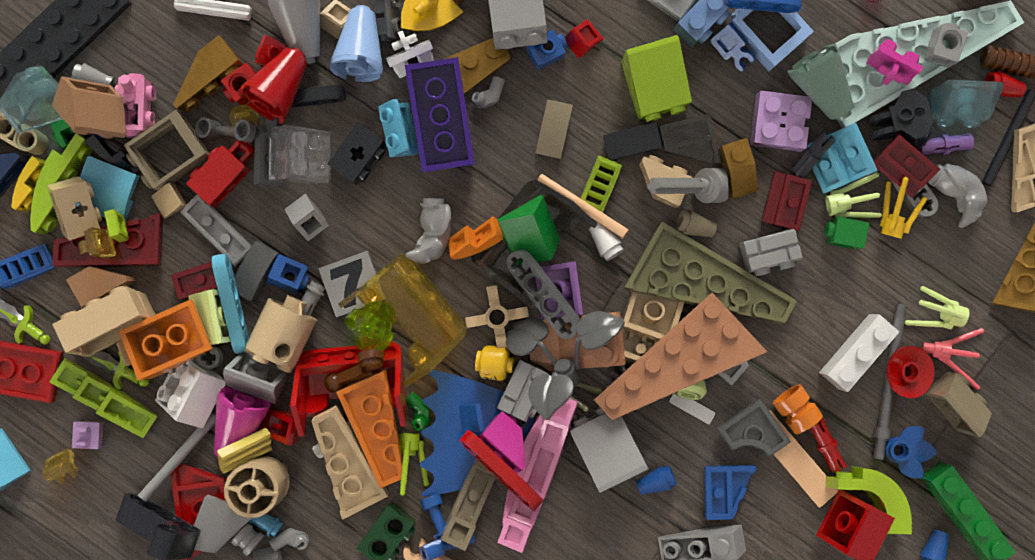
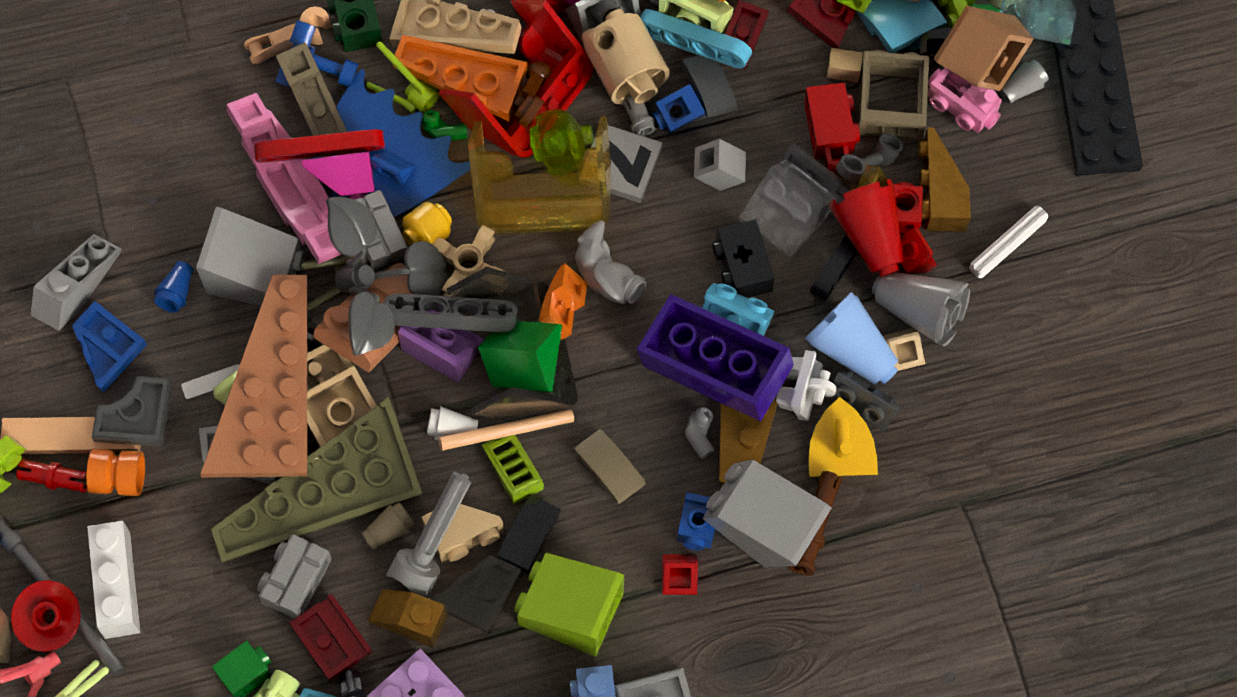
camera: 130 degrees right, 20 degrees down
(216, 229) = (775, 84): light grey tile -> none

